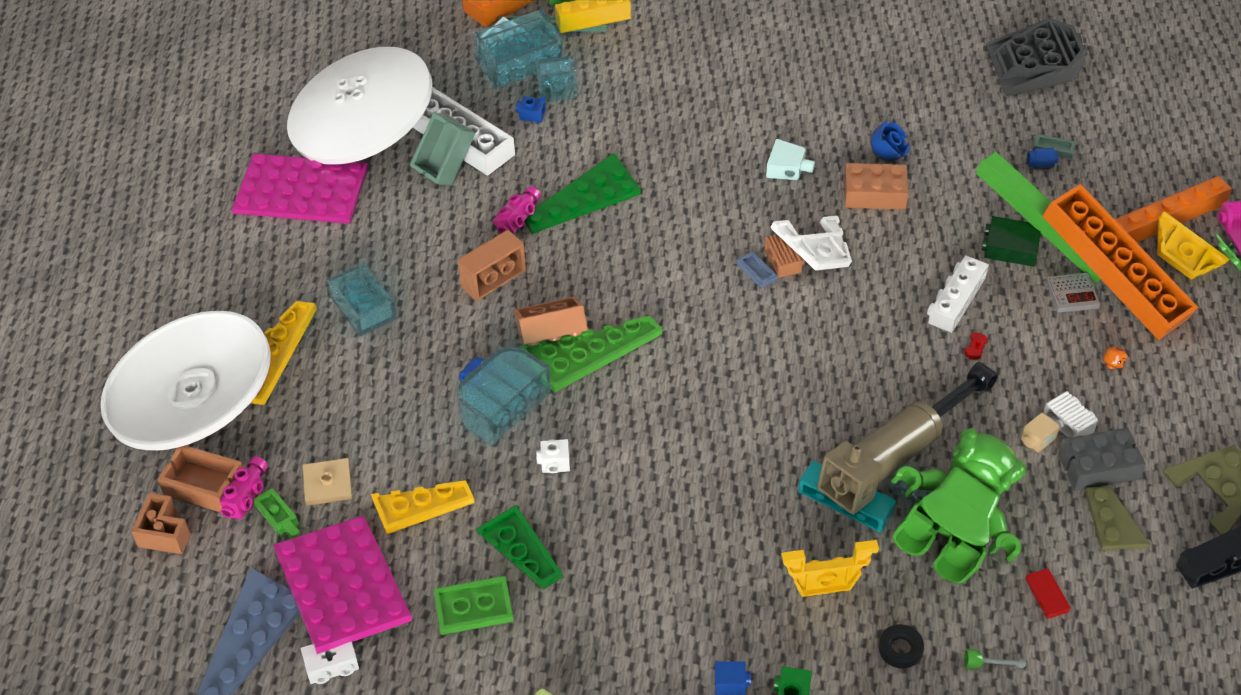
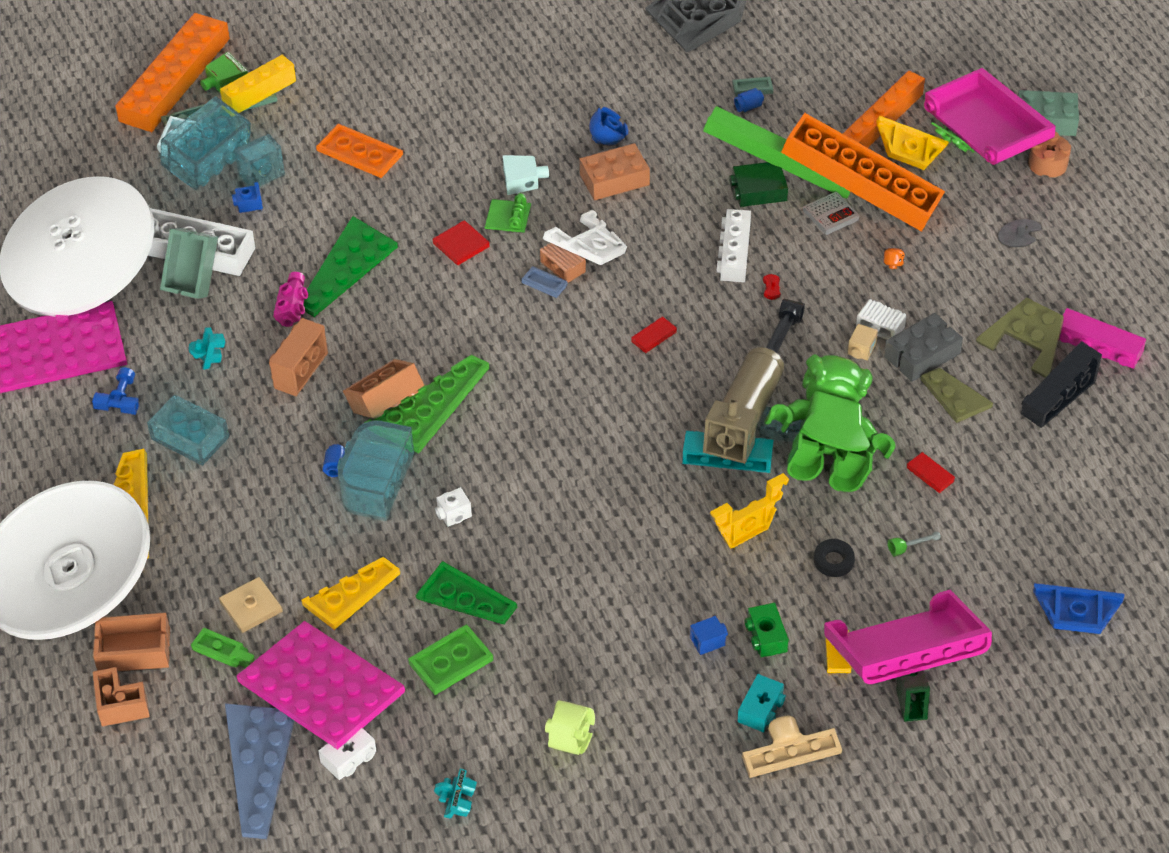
camera: 25 degrees left, 0 degrees up
(244, 488) = (179, 637): dark pink brick -> none
(322, 250) = (117, 397): none -> blue bar
(421, 232) = (205, 348): none -> teal hips
(653, 96) = (359, 150): none -> orange tile
(699, 208) = (461, 242): none -> red tile
(756, 196) = (508, 214): none -> bright green hinge
(835, 354) = (653, 334): none -> red tile

